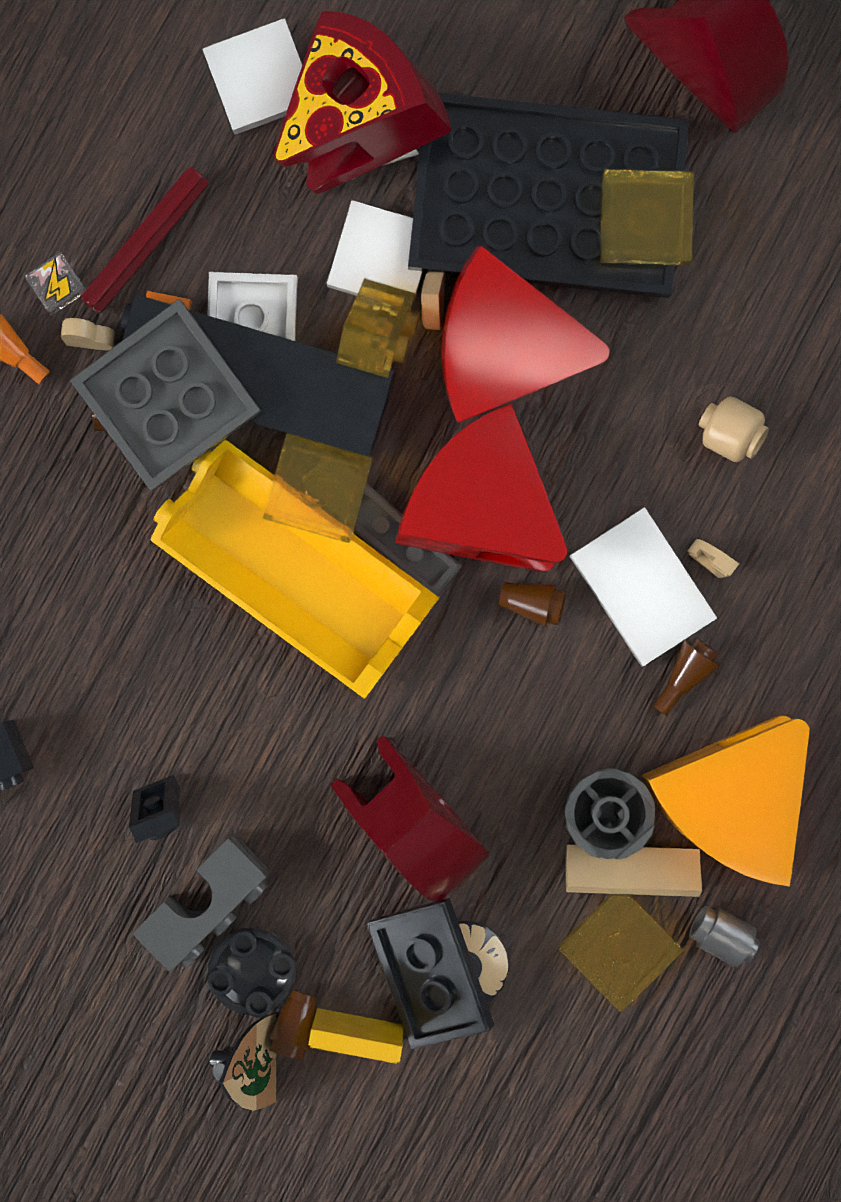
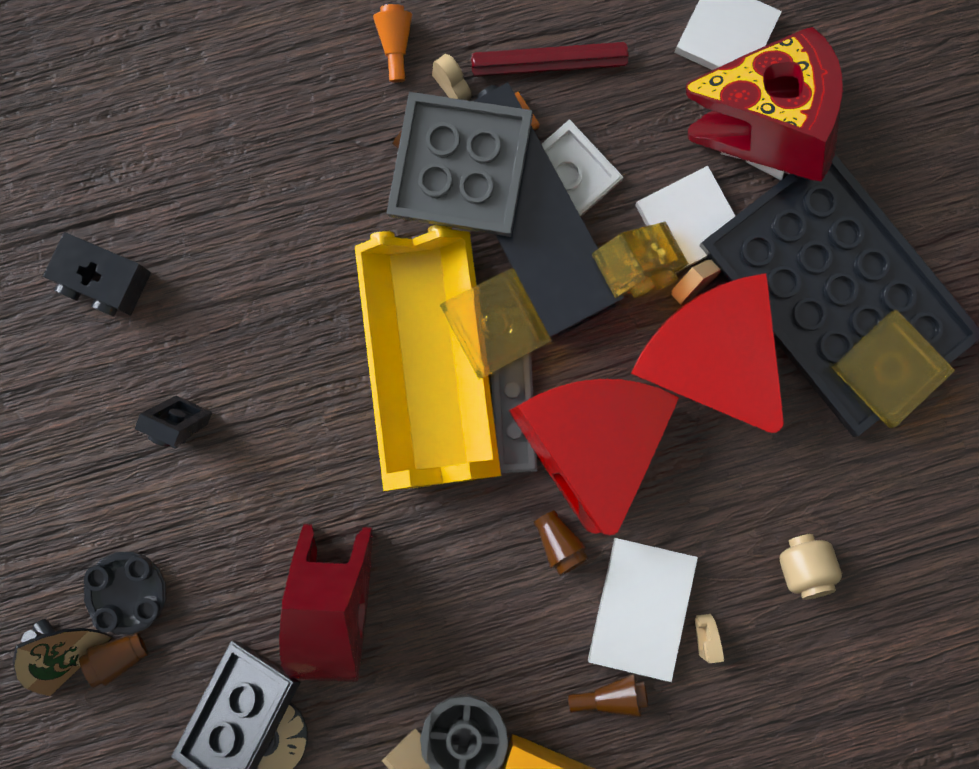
camera: 50 degrees right, 5 degrees down
(55, 283) = (465, 30): tile -> none
(176, 932) = (105, 514): dark grey arch -> none
(357, 1036) = (142, 710): yellow tile -> none

